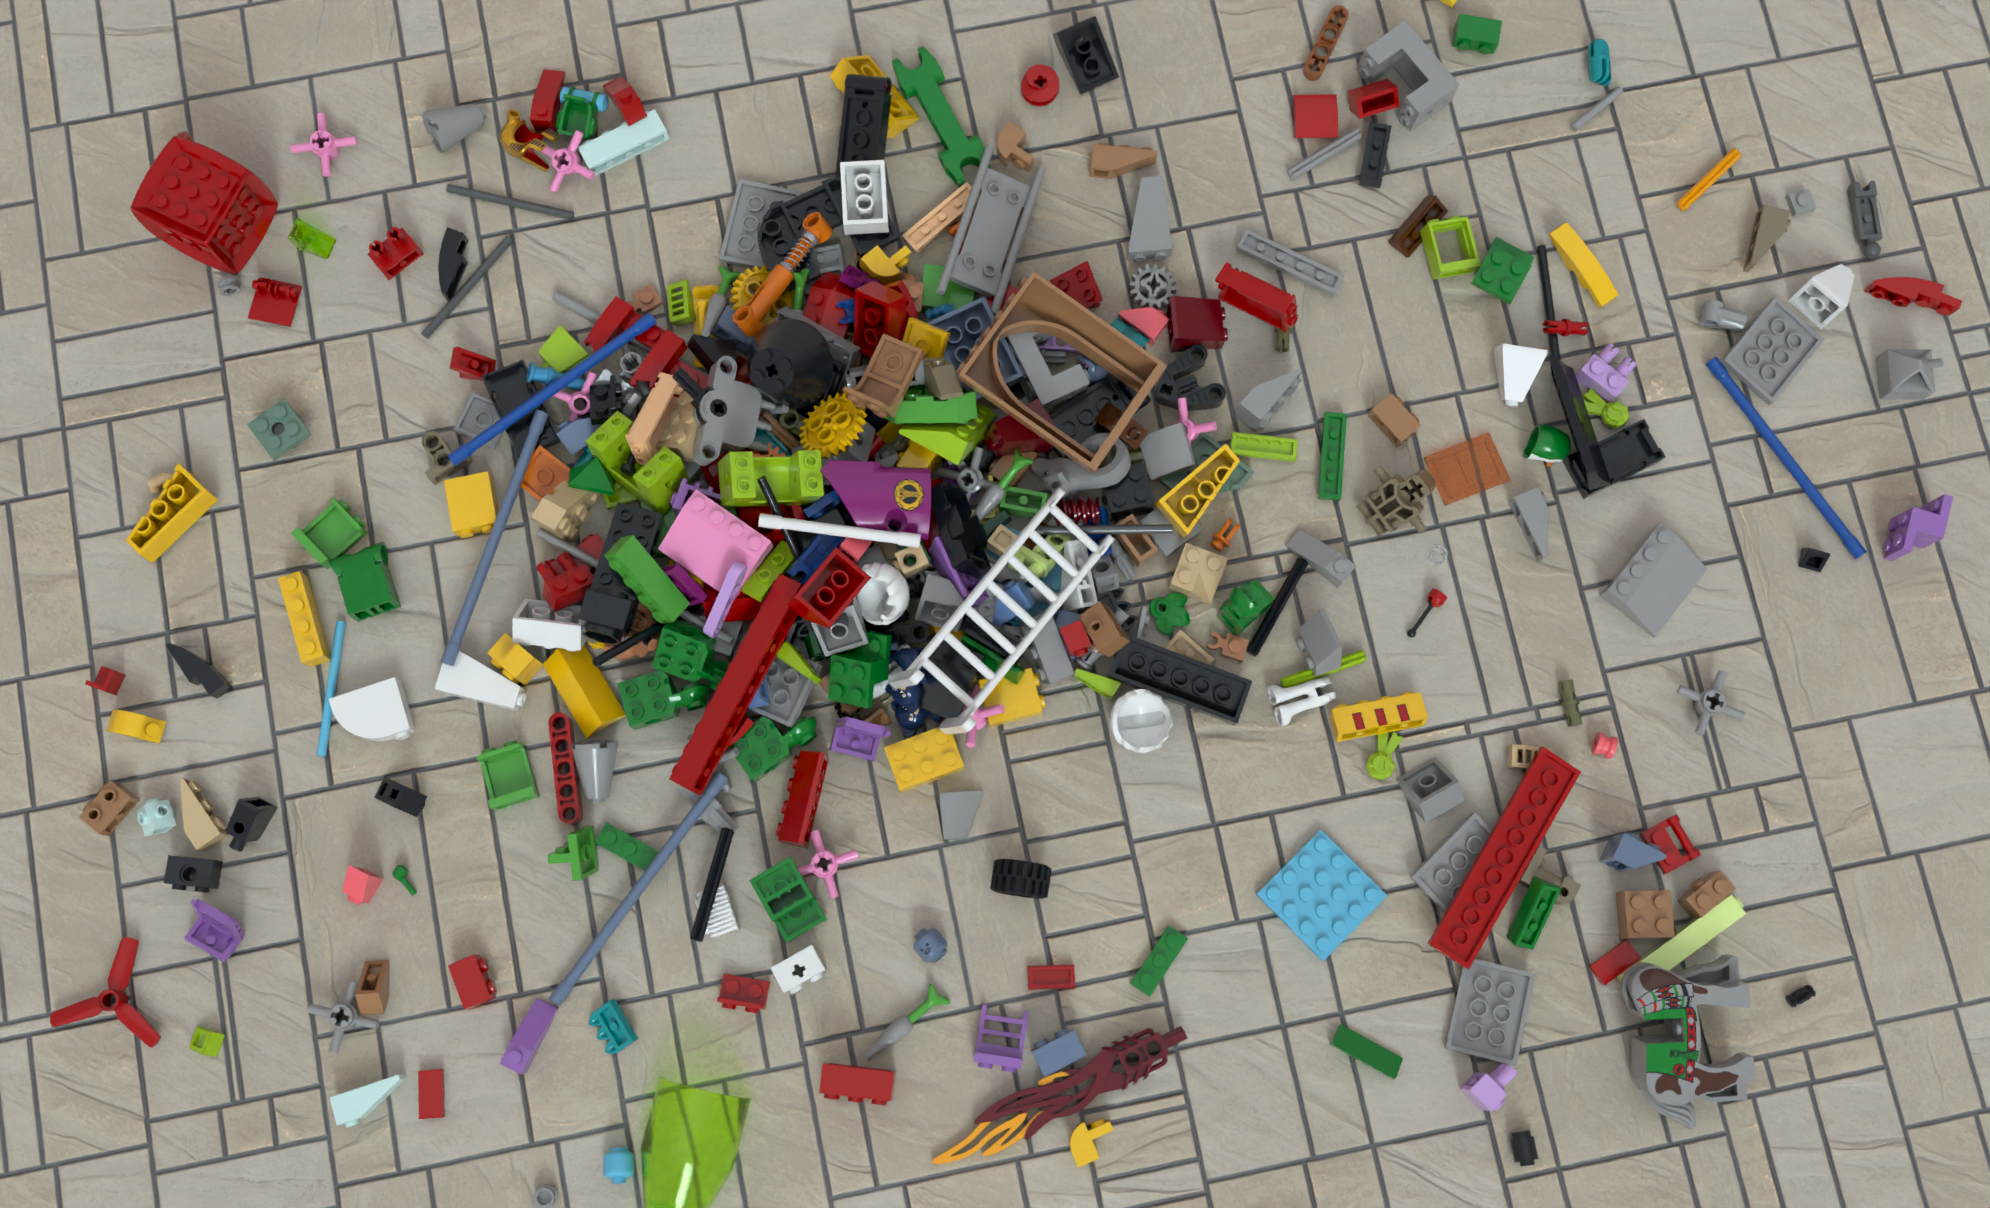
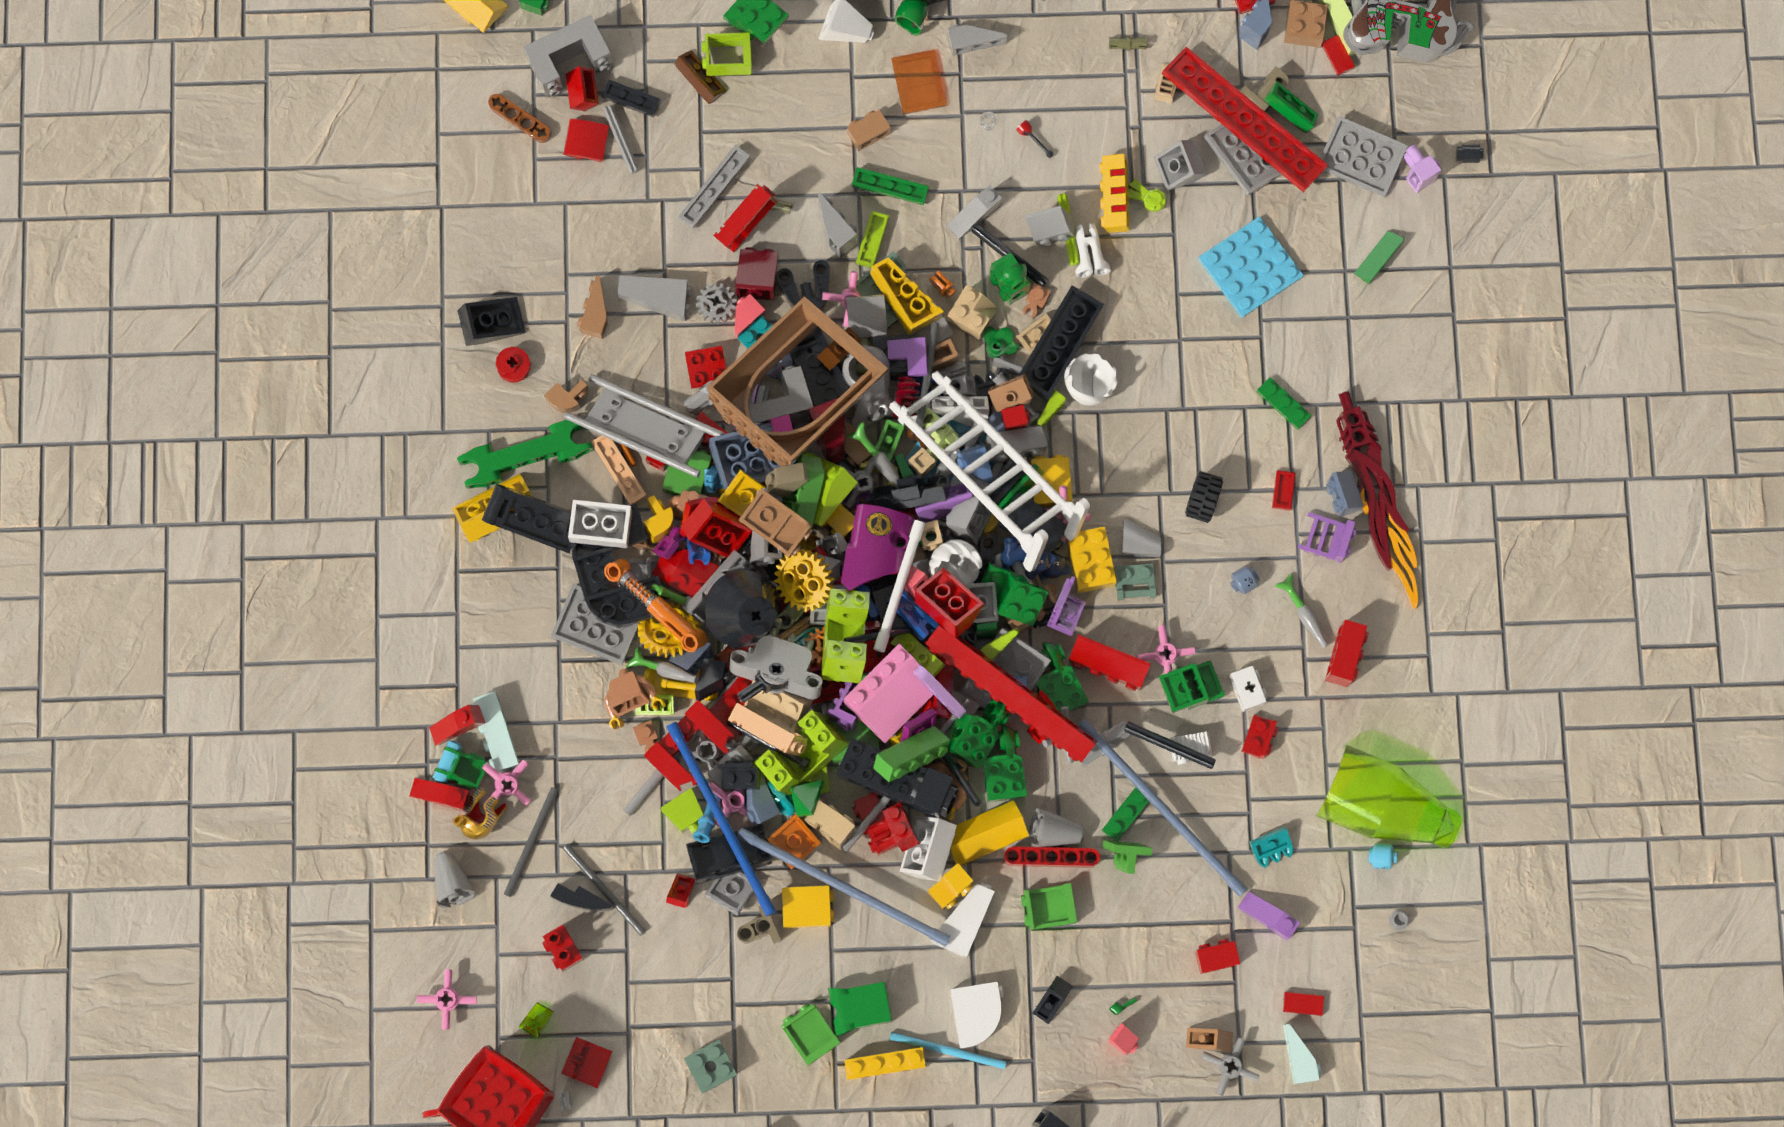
camera: 80 degrees left, 0 degrees up
(684, 270) = (627, 694): none -> nougat torso
(916, 815) = (1135, 575): none -> sand green plate
(1013, 373) = (781, 424): none -> dark pink tile
(1081, 1140) = (1415, 487): yellow brick -> none
(1131, 509) = (914, 351): none -> medium lavender tile
(1397, 500) = (940, 140): dark tan piece -> none
(1604, 745) = (1167, 24): coral wheel -> none

